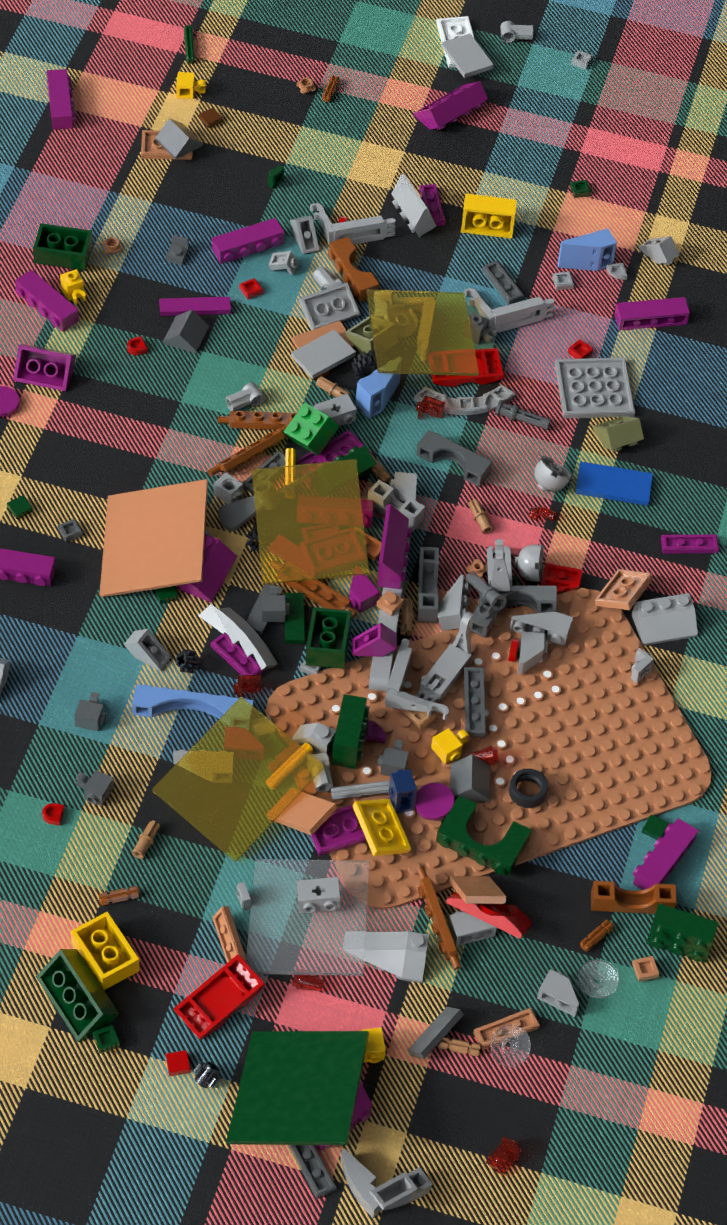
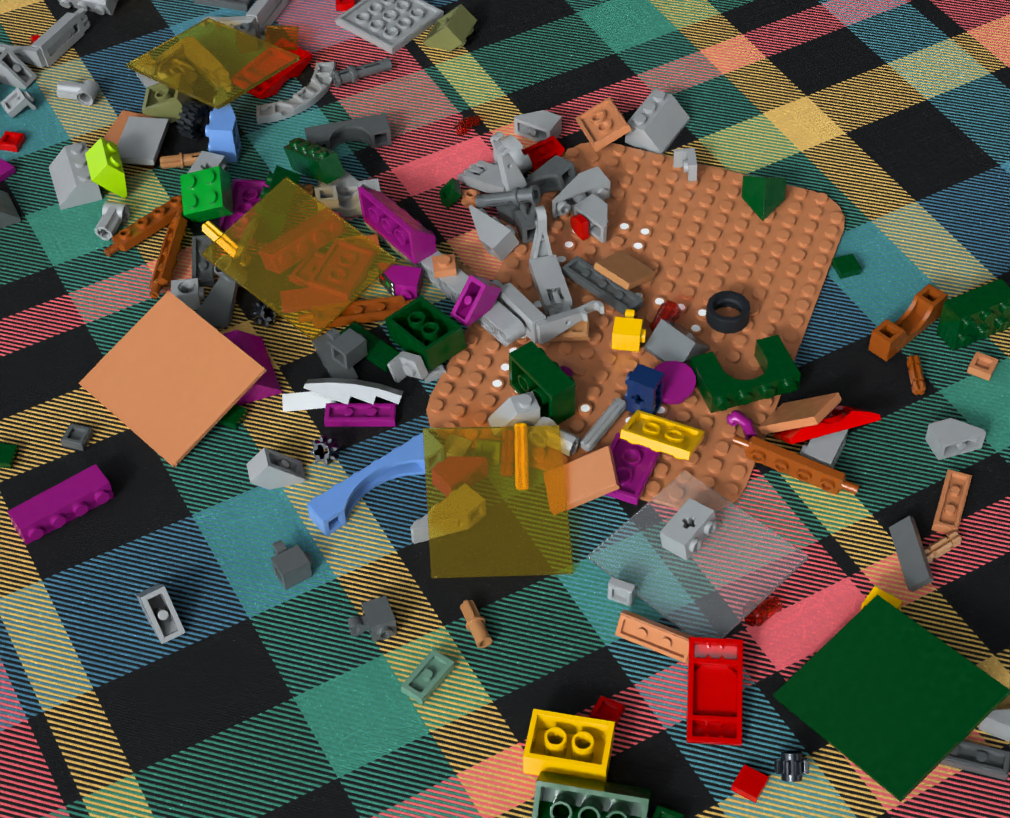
camera: 40 degrees left, 5 degrees down
(53, 813) = (362, 679): red tile -> none
(85, 844) = (427, 676): none -> sand green plate
(119, 895) = (512, 692): dark orange axle -> none
(153, 954) = (608, 710): none -> red tile
(248, 684) = (401, 425): clear red bracket -> none
(257, 348) = (72, 177): none -> light grey slope
(275, 359) = (106, 167): none -> lime slope
(294, 648) = (407, 364): none -> light grey bracket
(329, 306) = (101, 105): light grey tile -> none
(343, 254) = (107, 73): dark orange arch -> none
(393, 759) = (602, 379): dark grey brick -> none
(398, 953) = (805, 517): light grey wedge -> none
(400, 459) = (314, 160): none -> dark green brick
(427, 584) = (469, 248): dark grey arch -> none
(430, 406) = (281, 115): clear red bracket -> none
(444, 865) = (745, 422): none -> magenta arm
(467, 555) = (450, 193): none -> dark green plate
(480, 516) = (423, 160): medium nougat axle -> none
(496, 347) = (282, 36): none -> clear orange piece
(500, 703) = (624, 270): none -> medium nougat tile
(518, 1049) = (978, 509): clear dish -> none
(550, 475) = (442, 91): light grey cylinder -> none
(585, 555) = (538, 125): none -> light grey slope
(600, 971) = (964, 402): clear dish -> none
(614, 483) = (491, 67): blue tile -> none
(663, 731) = (763, 194): none -> dark green slope
(666, 855) = (884, 277): magenta brick -> none
(689, 544) = (600, 65): magenta tile -> none

